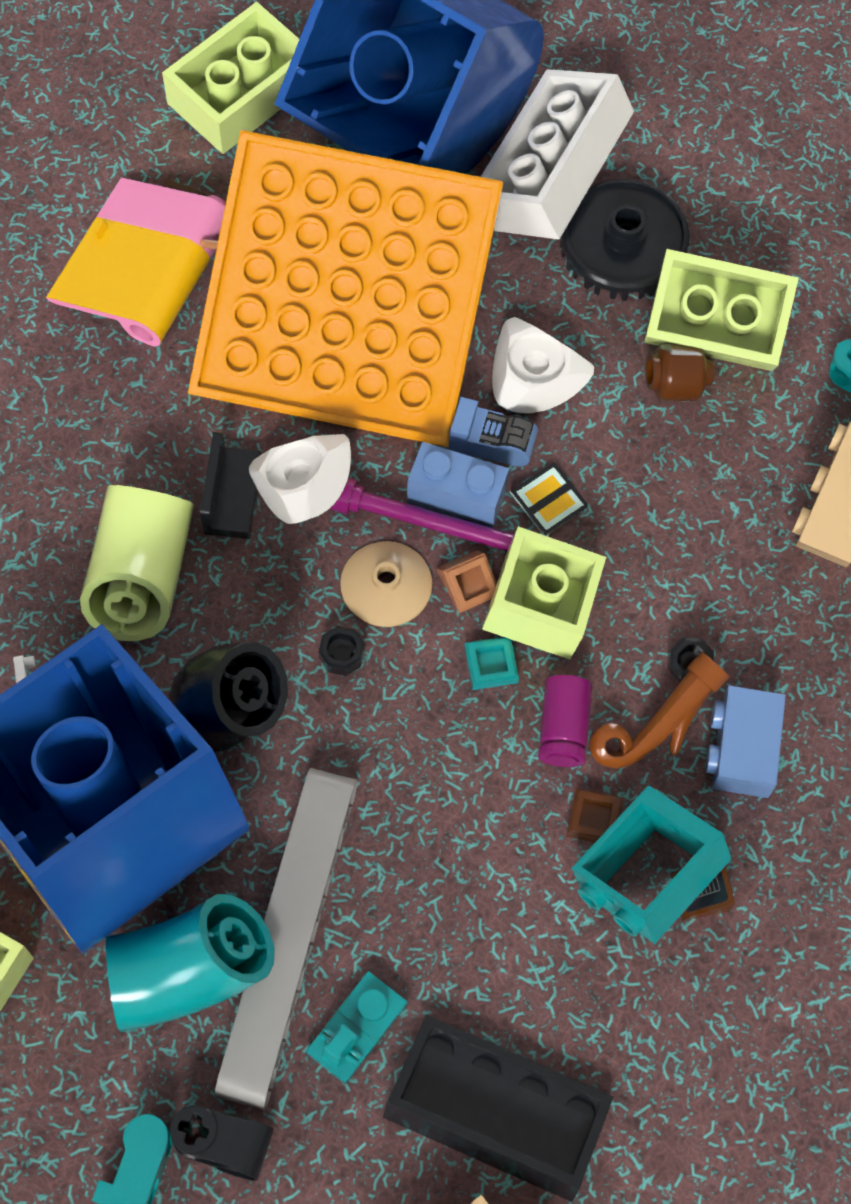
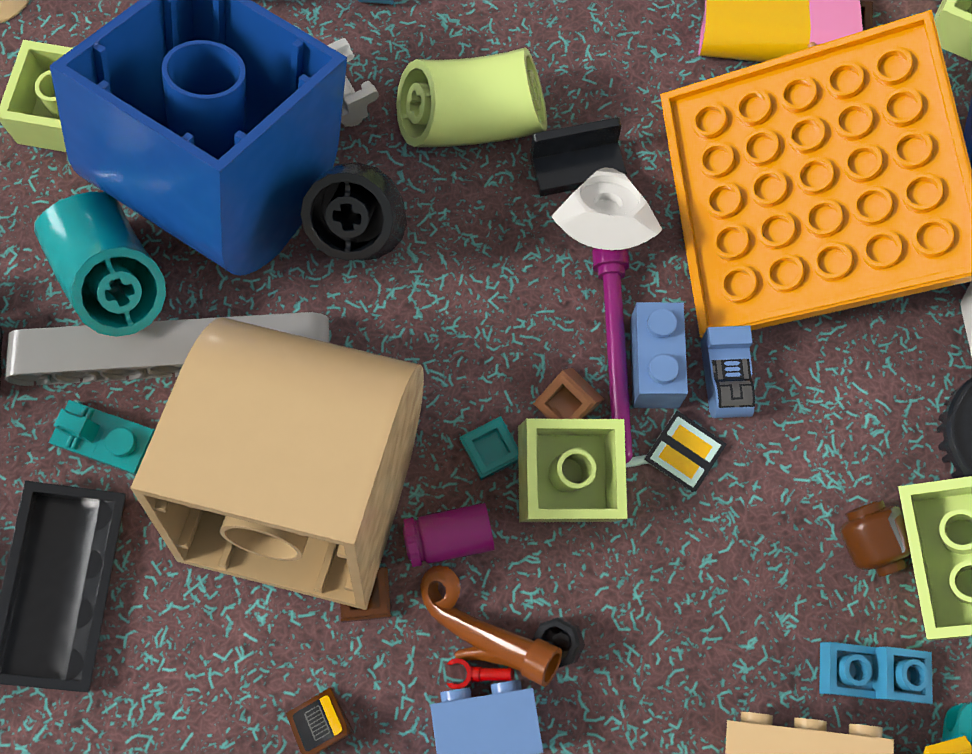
camera: 75 degrees right, 5 degrees up
(341, 651) = (453, 308): black tile -> none
(390, 602) = (539, 348): tan dish -> none
(470, 813) = (282, 459): none -> tan brick
(535, 369) = (820, 394): white hat -> none
(647, 814) = (335, 623): teal window -> none
(699, 735) = (480, 674): none -> red hand
(787, 420) = (876, 672): none -> dark azure slope

